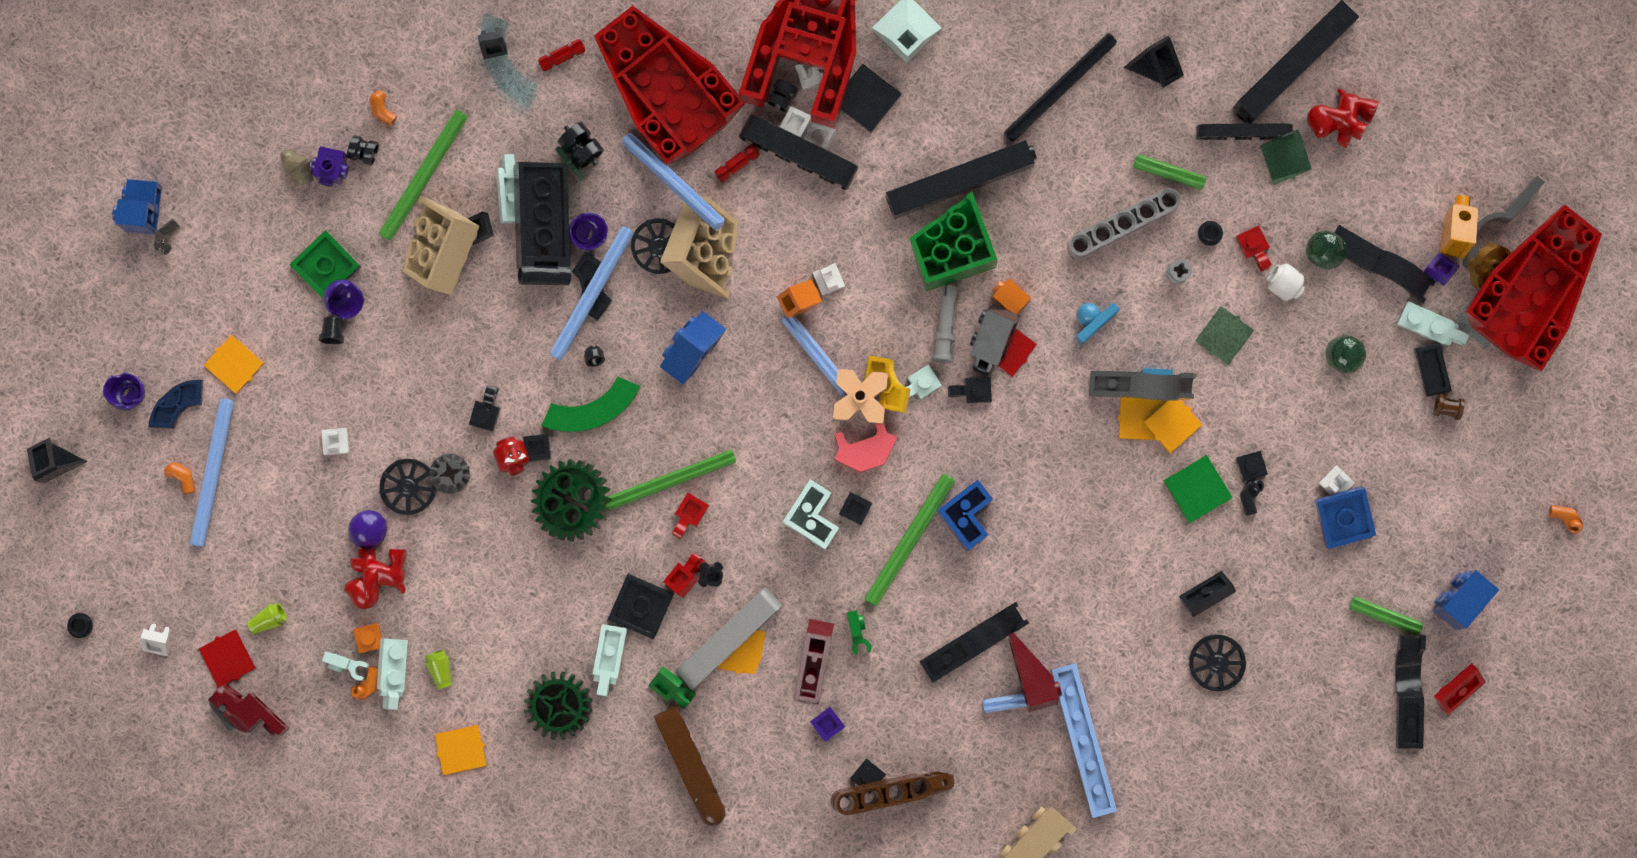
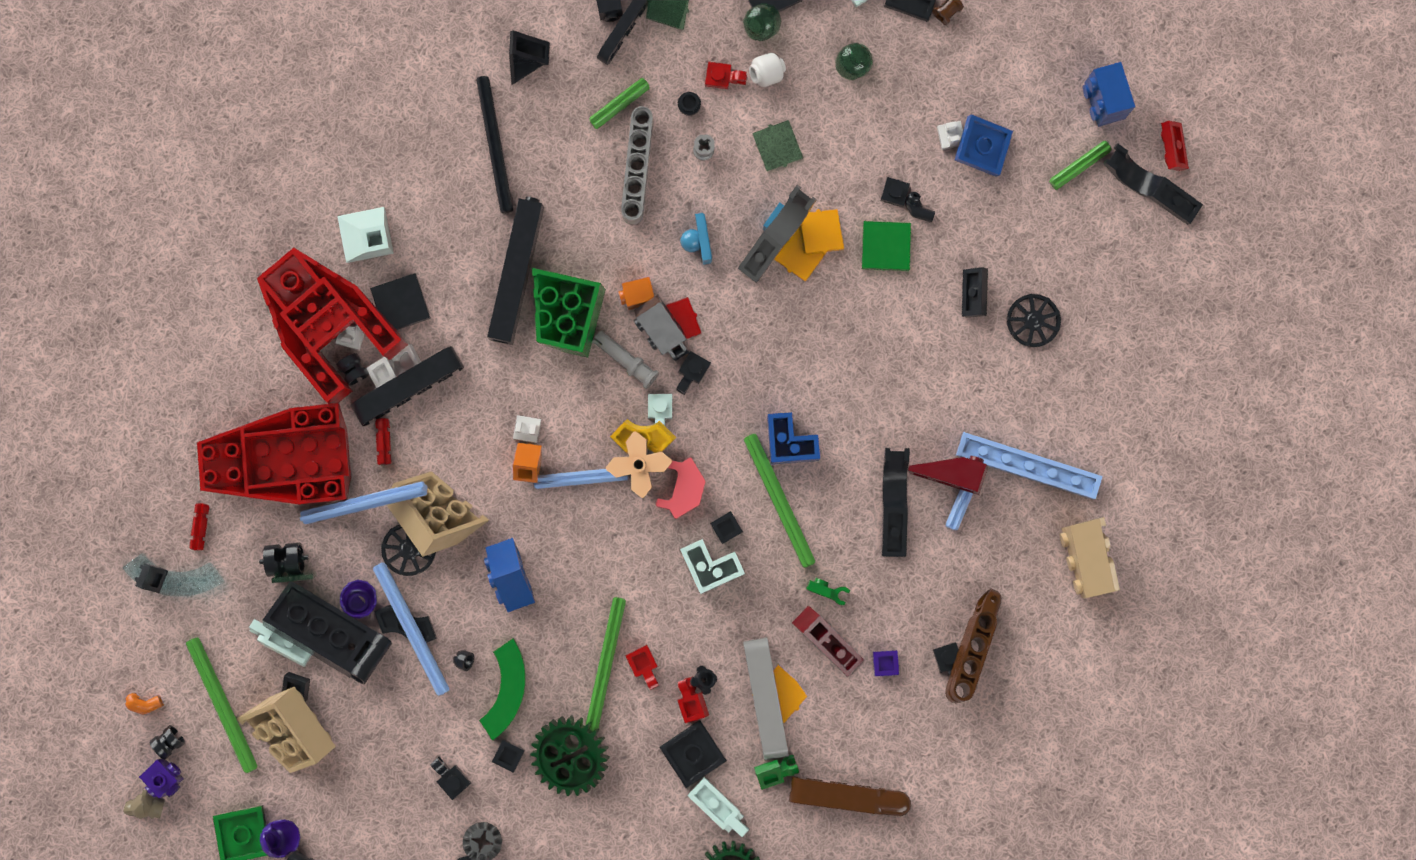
camera: 55 degrees left, 0 degrees up
(511, 455) = (501, 782): red head -> none

